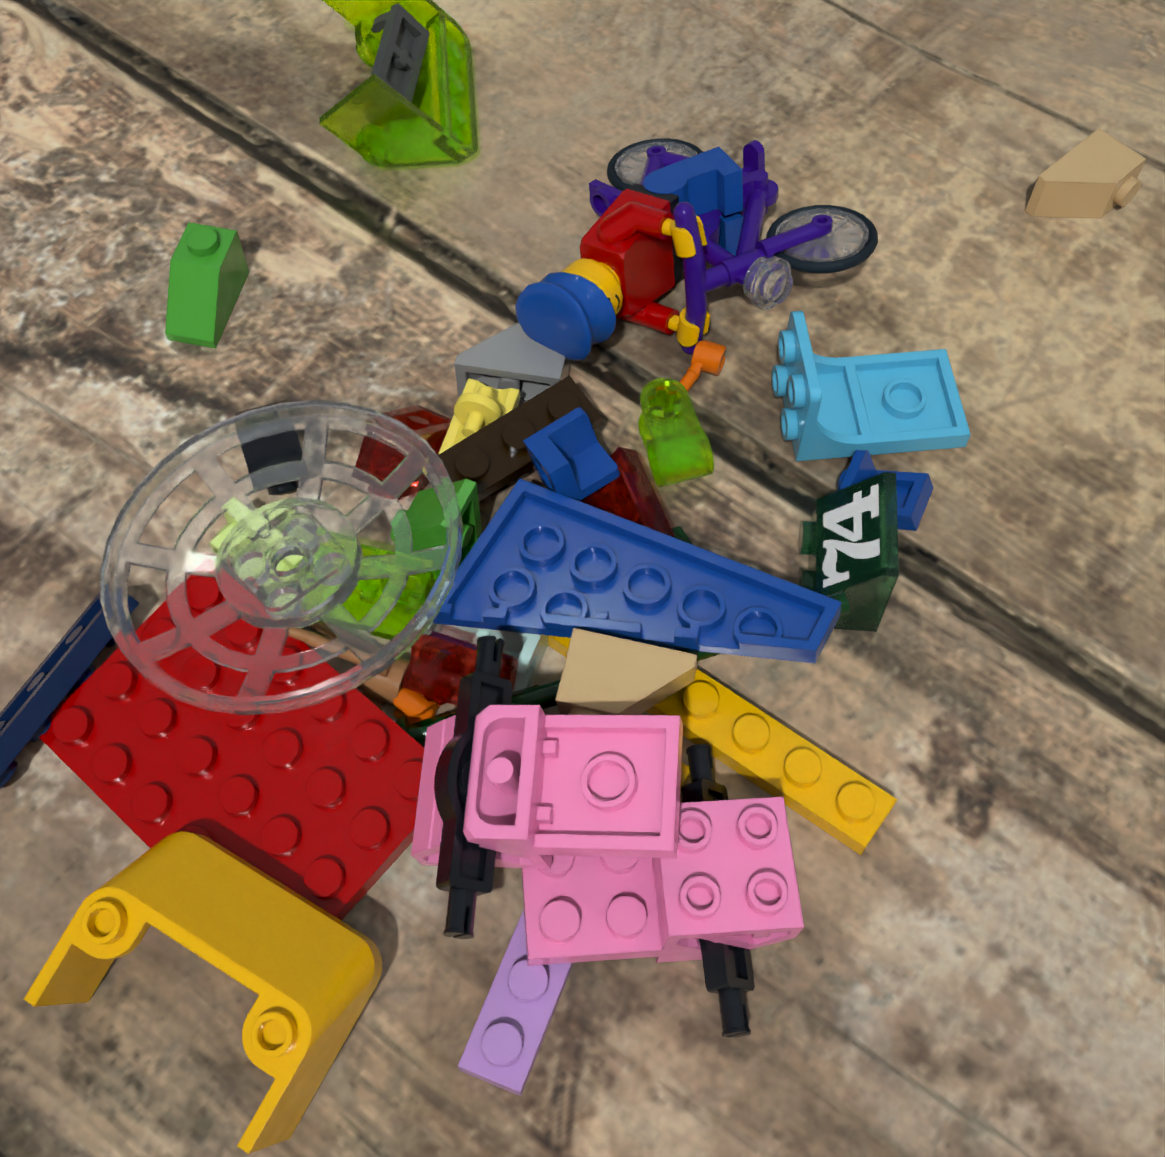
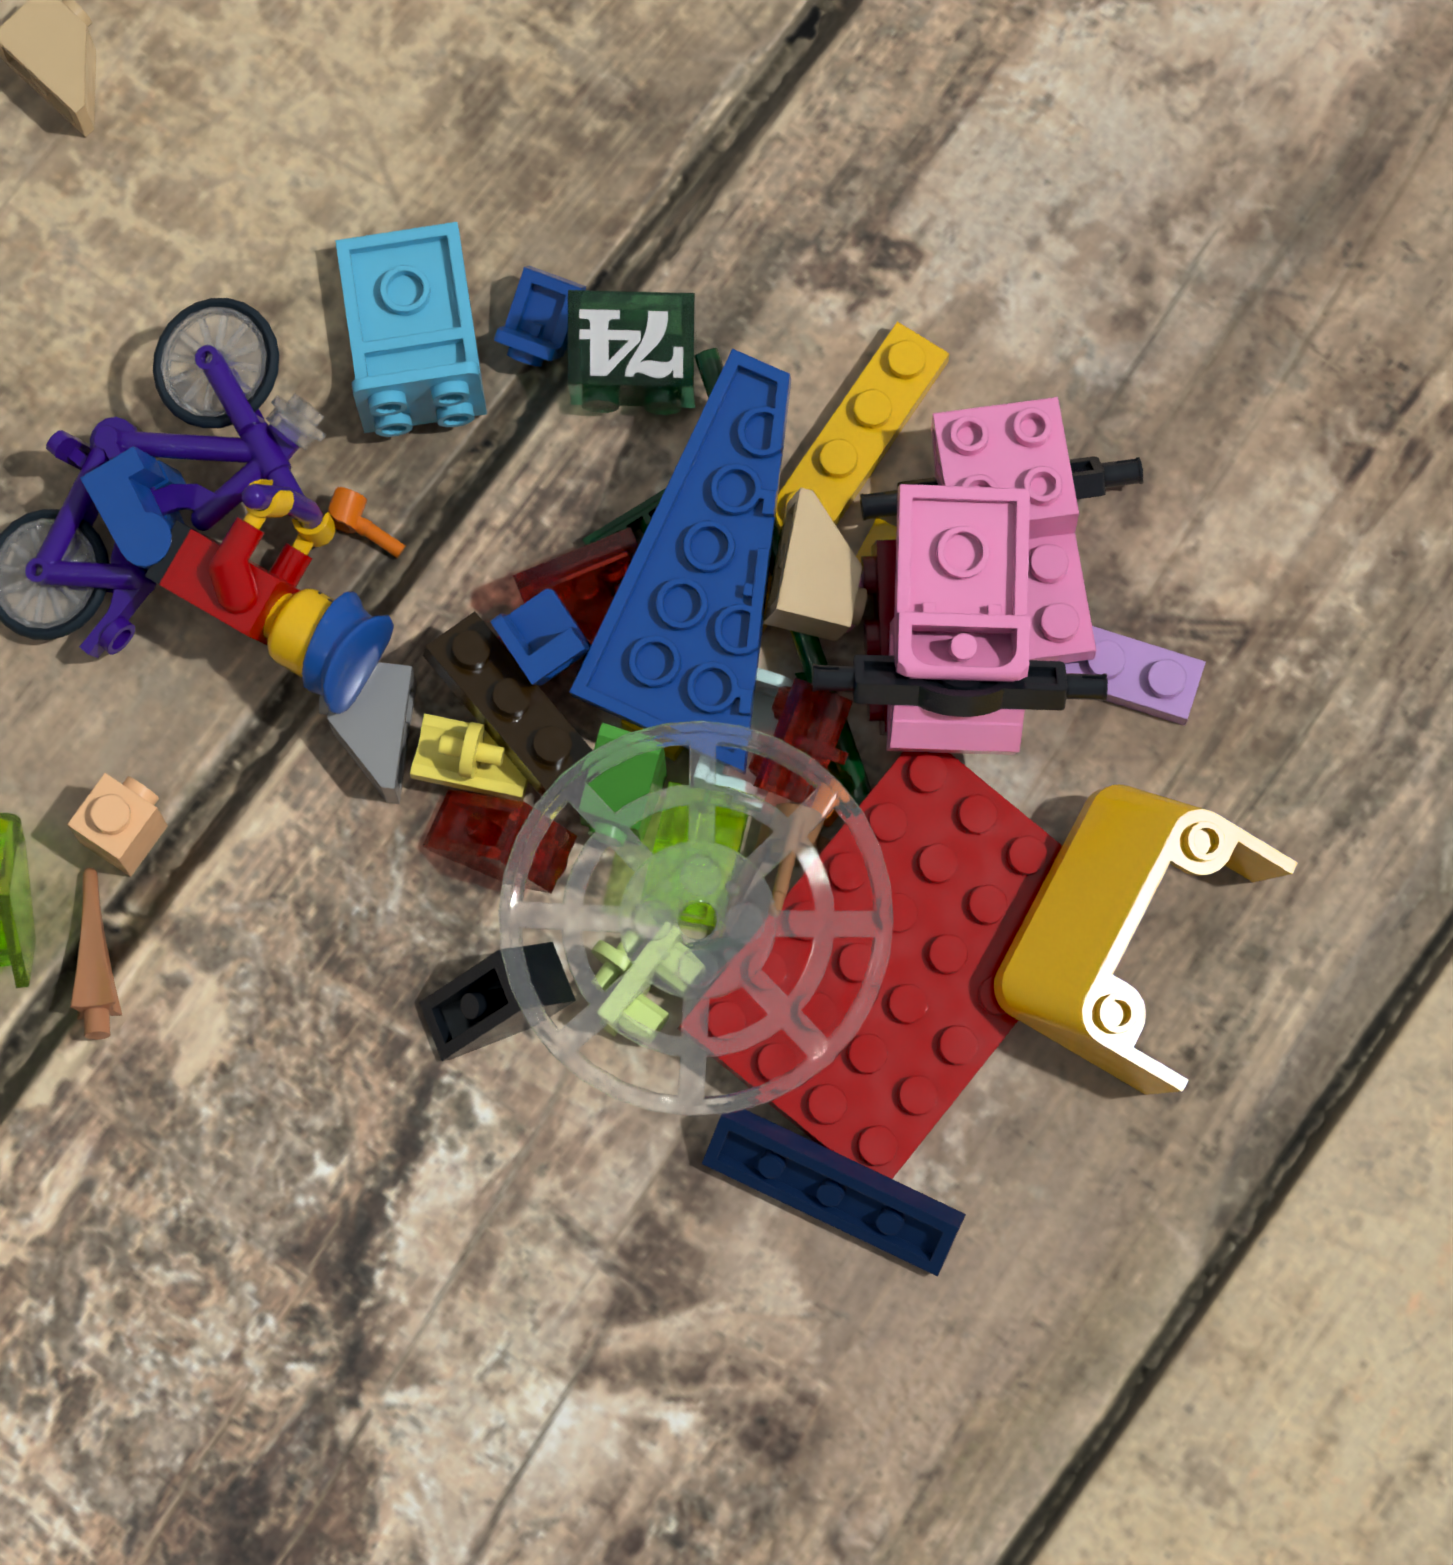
camera: 90 degrees left, 15 degrees up
(204, 284) = (262, 1122): bright green slope -> none
(341, 198) = (94, 984): none -> nougat piece
(453, 203) = (119, 822): none -> light nougat brick
(672, 434) = (477, 544): clear neon green piece -> none

